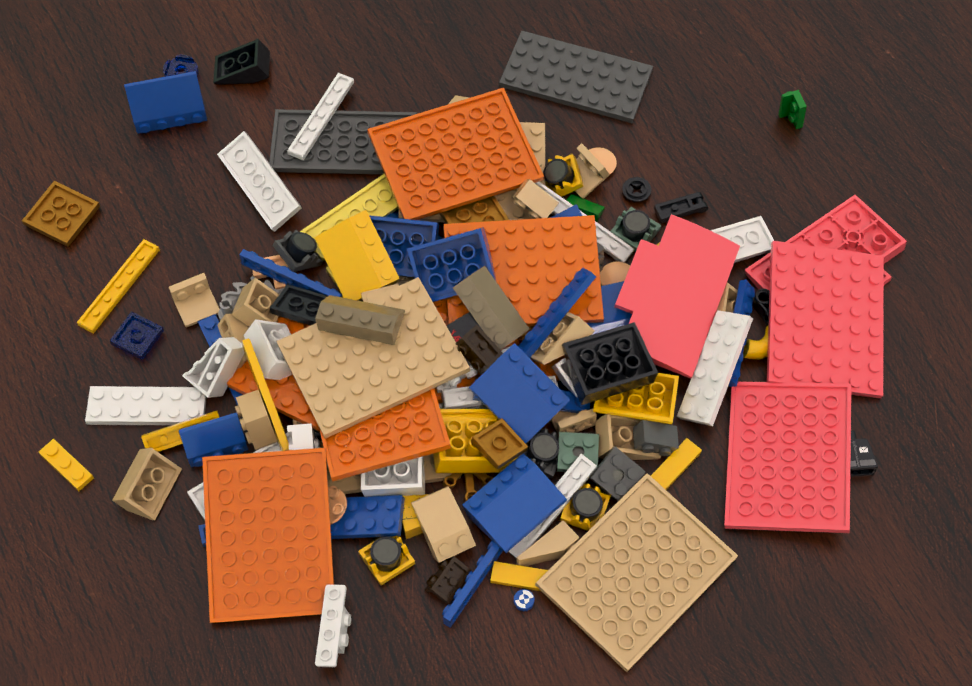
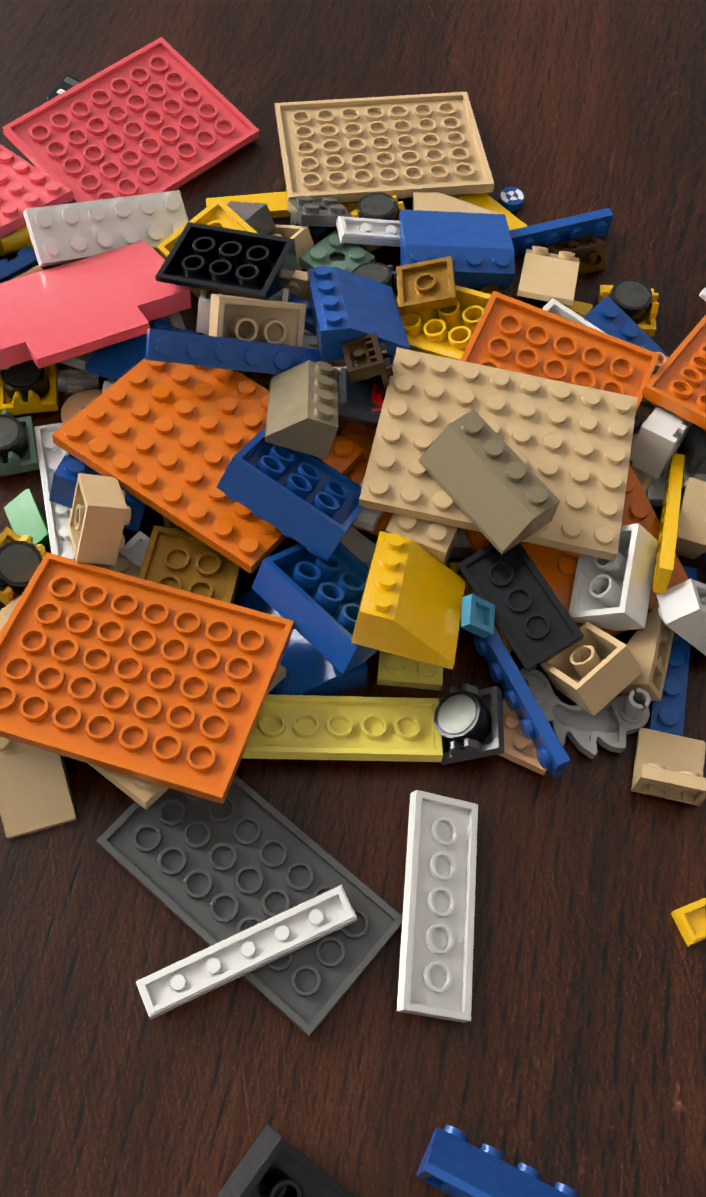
camera: 145 degrees left, 0 degrees up
(324, 280) = (477, 616): none -> dark azure plate

